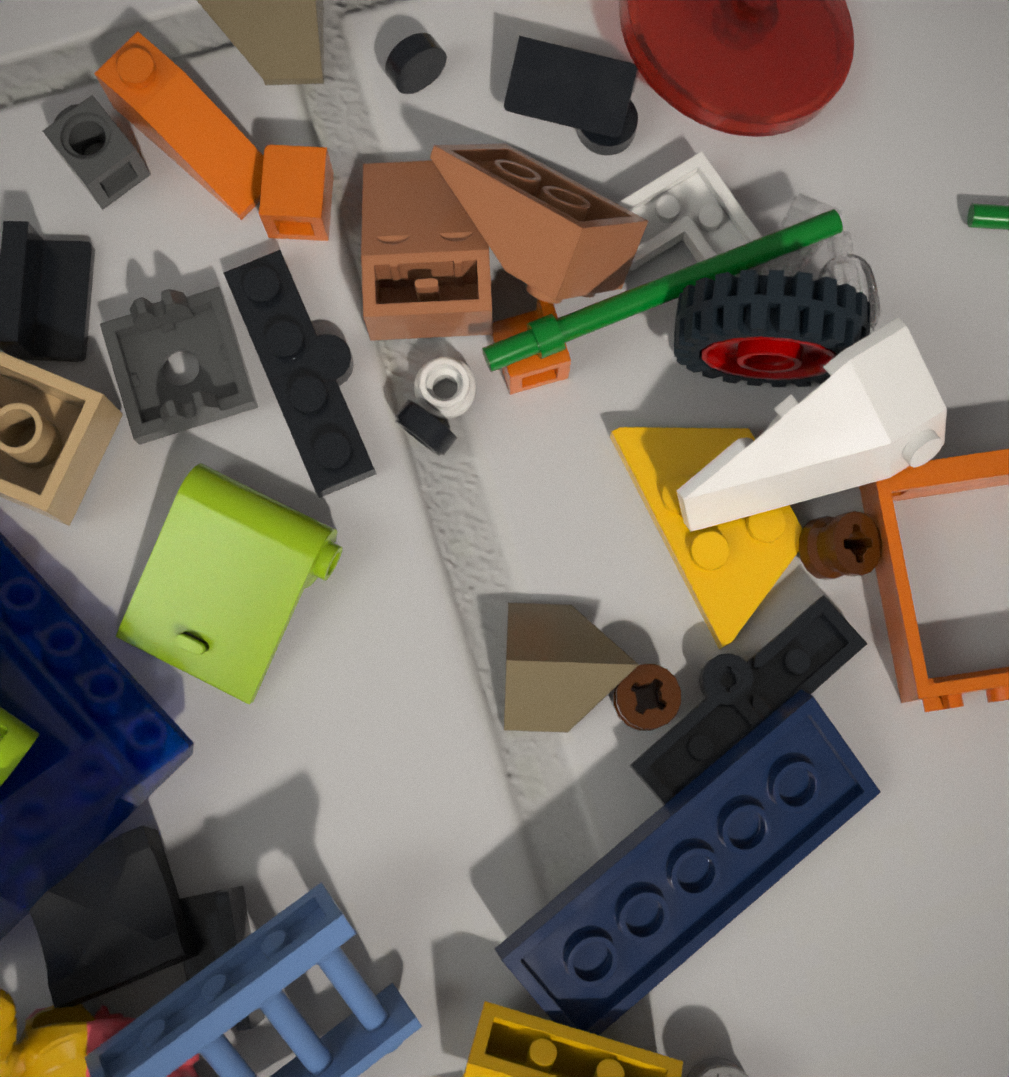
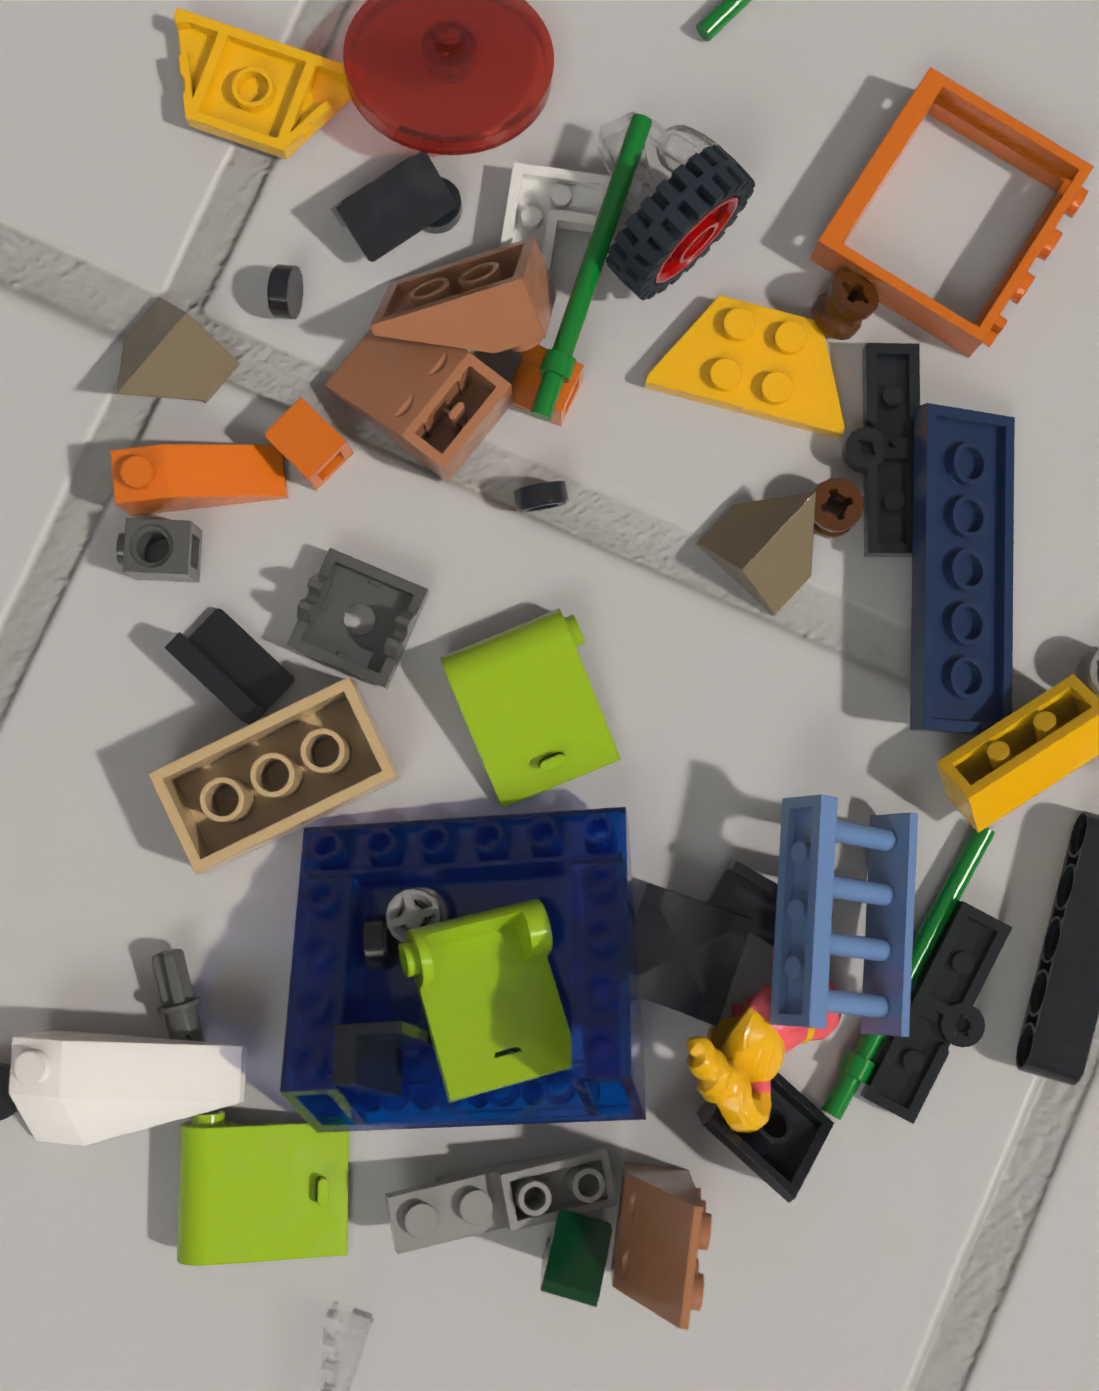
camera: 45 degrees left, 5 degrees up
(302, 373) = (430, 544): black hinge -> none
(440, 370) = (522, 446): white plate -> none
(851, 431) = (792, 224): white wedge -> none

